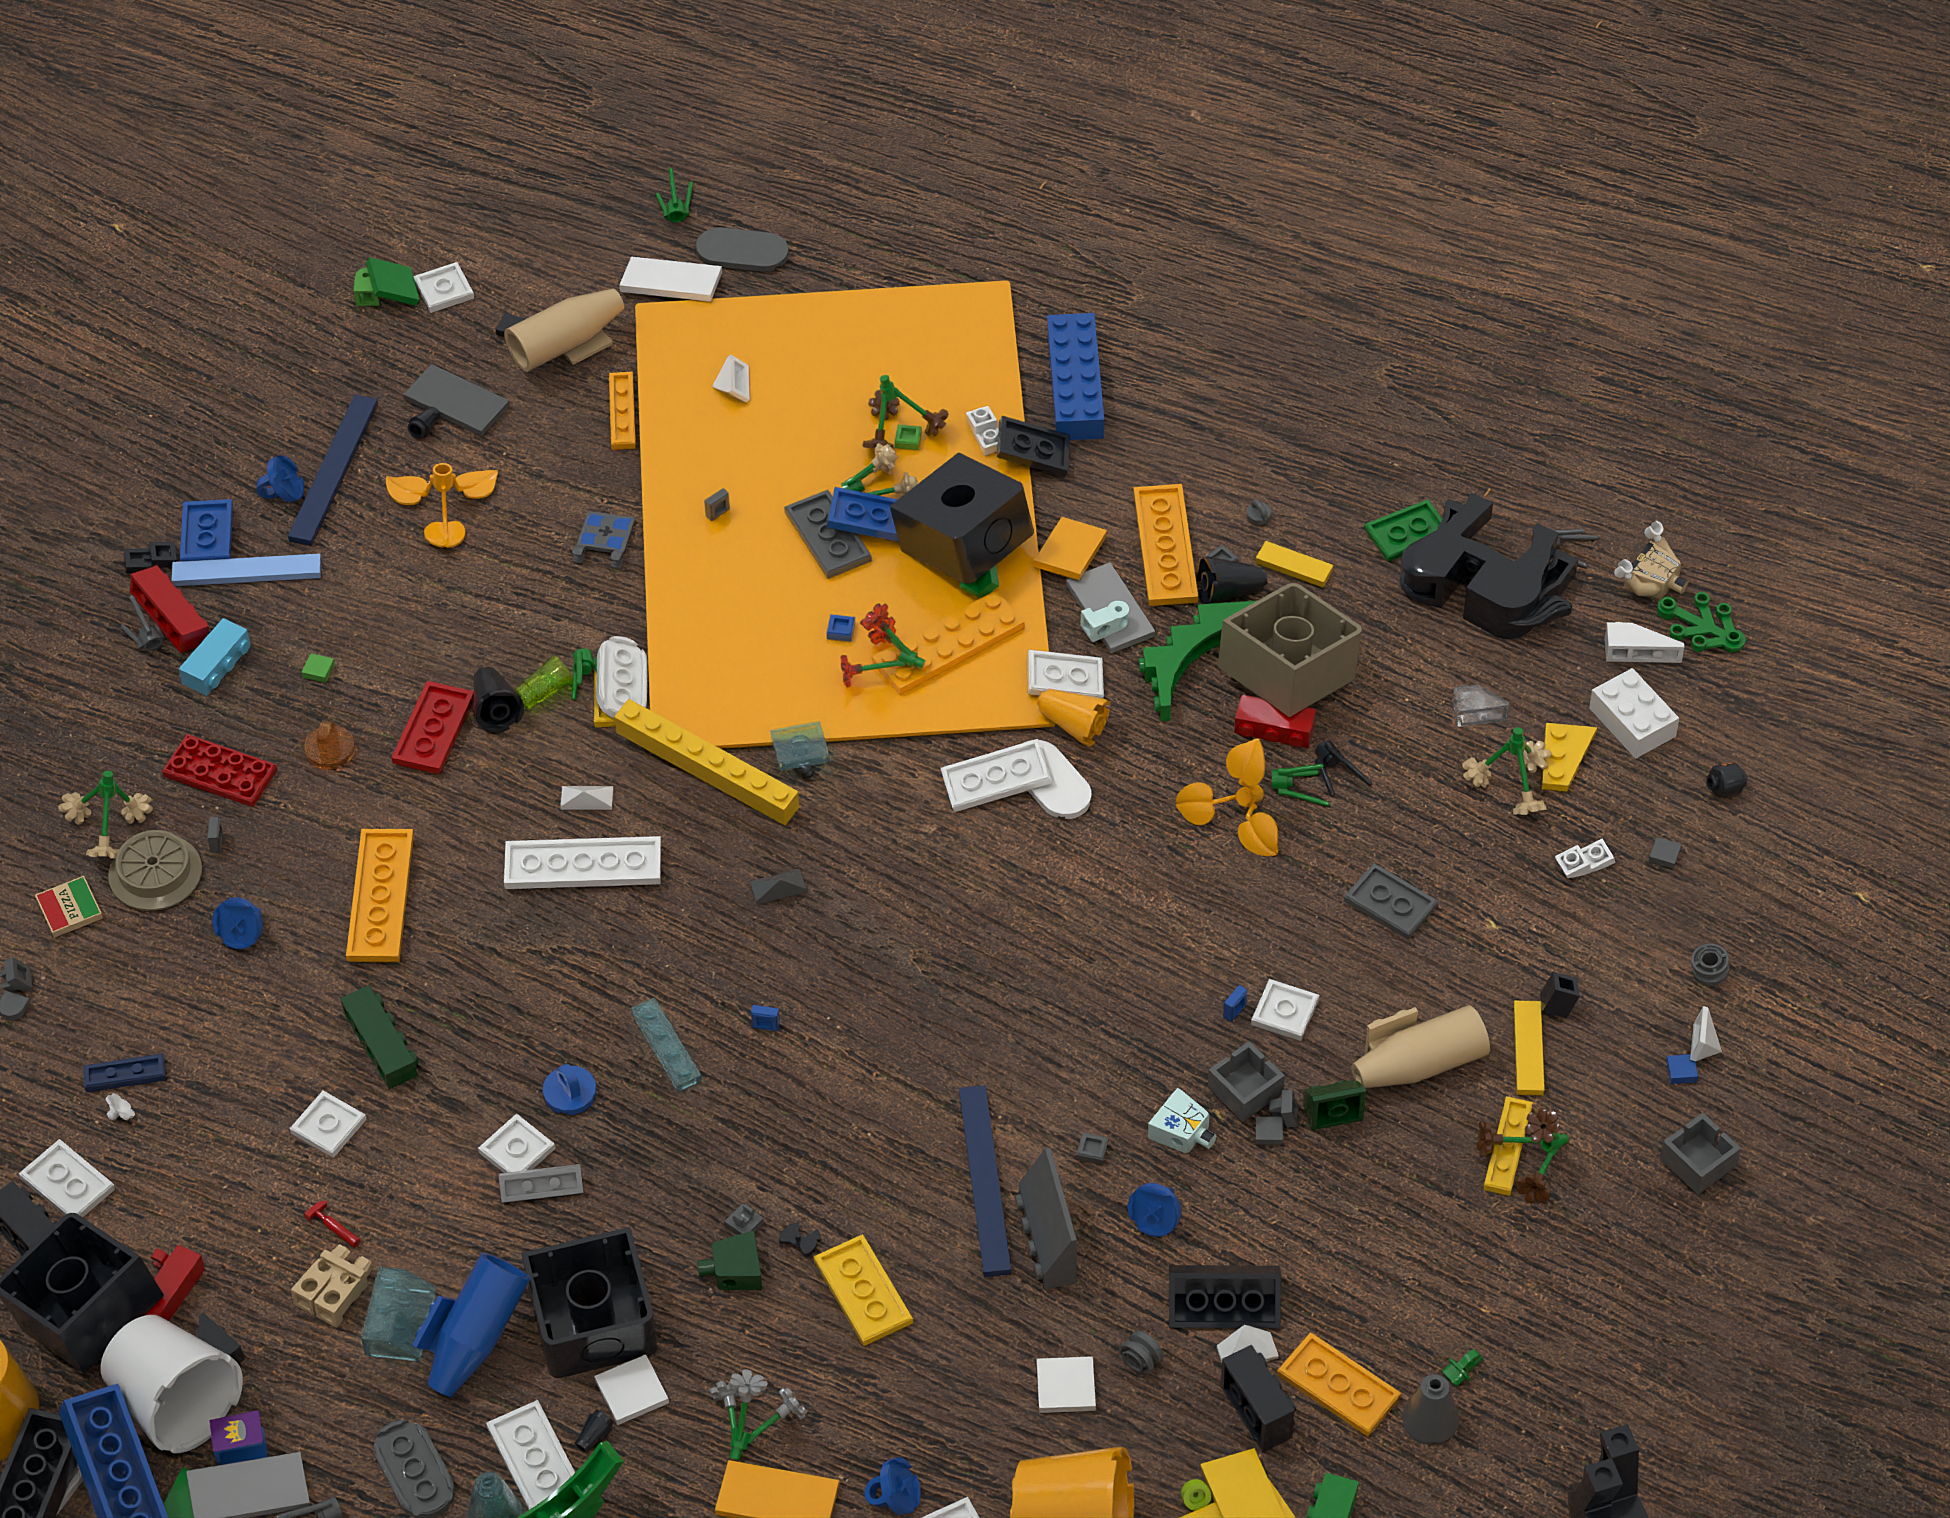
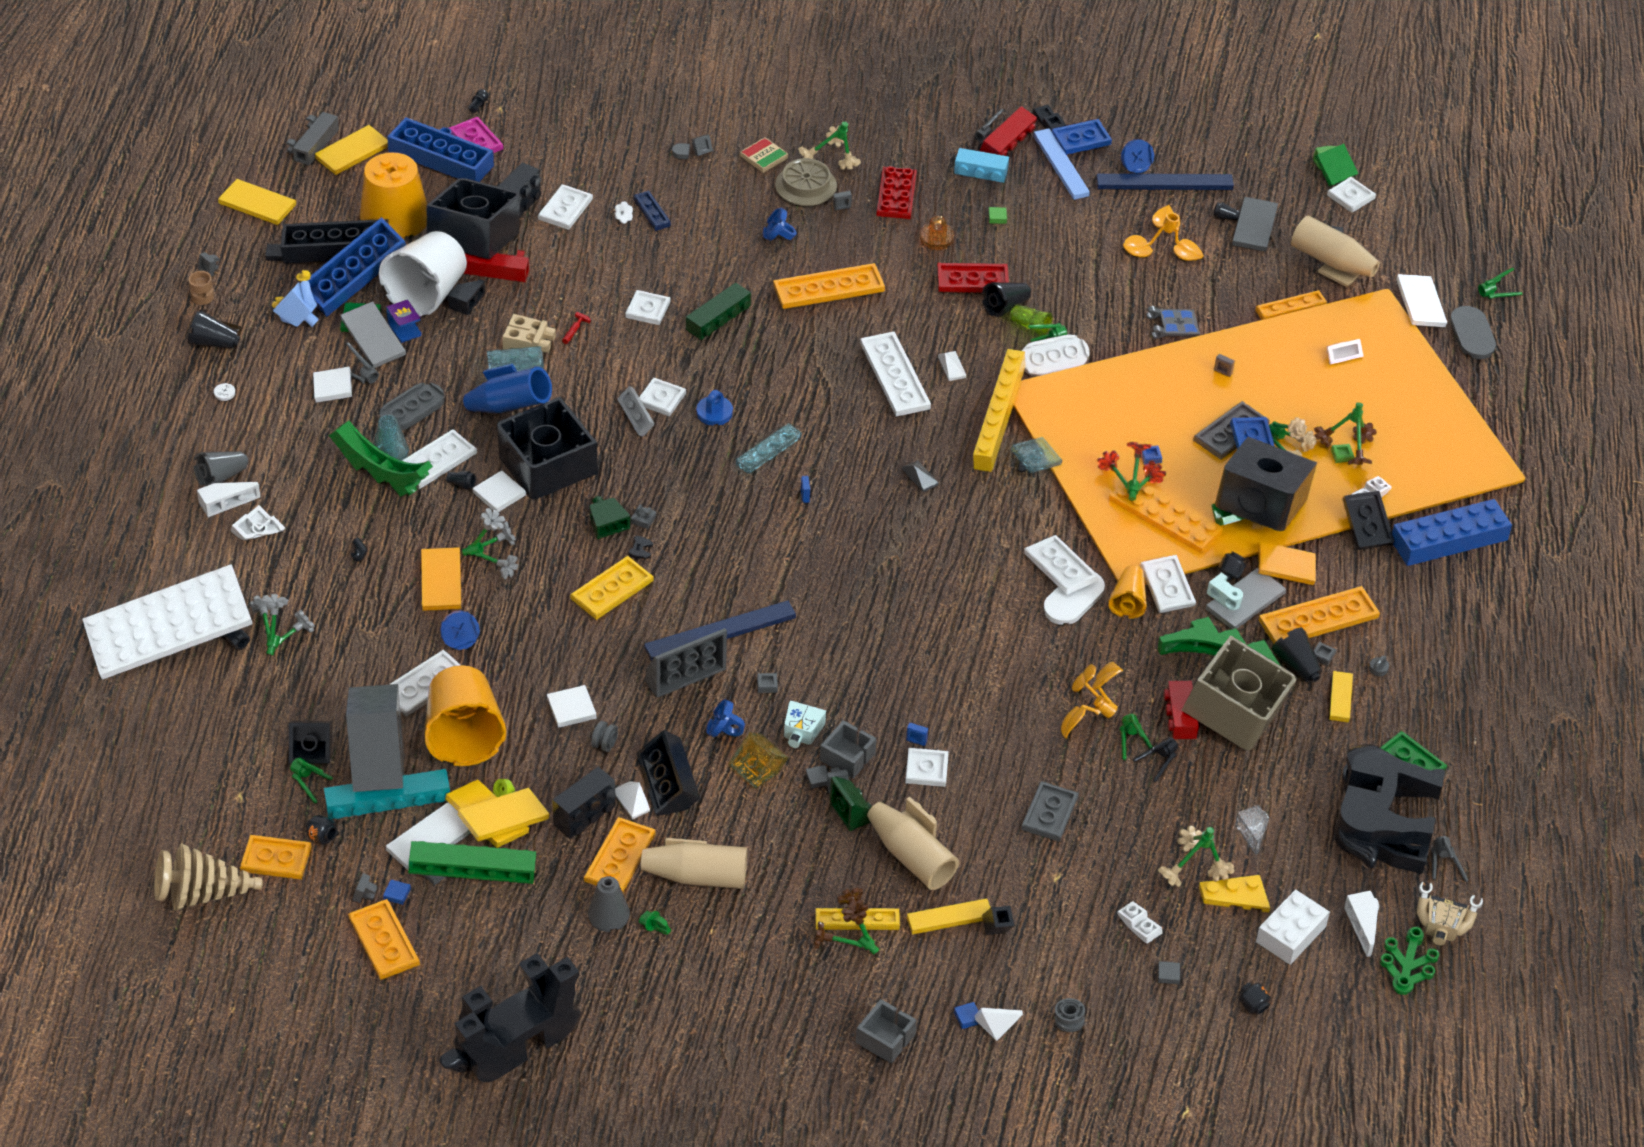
camera: 70 degrees right, 5 degrees down
(1061, 601) = (1232, 565): none -> black head
(1229, 1188) = (757, 760): none -> clear yellow slope
(1390, 1297) = (697, 863): none -> tan piece

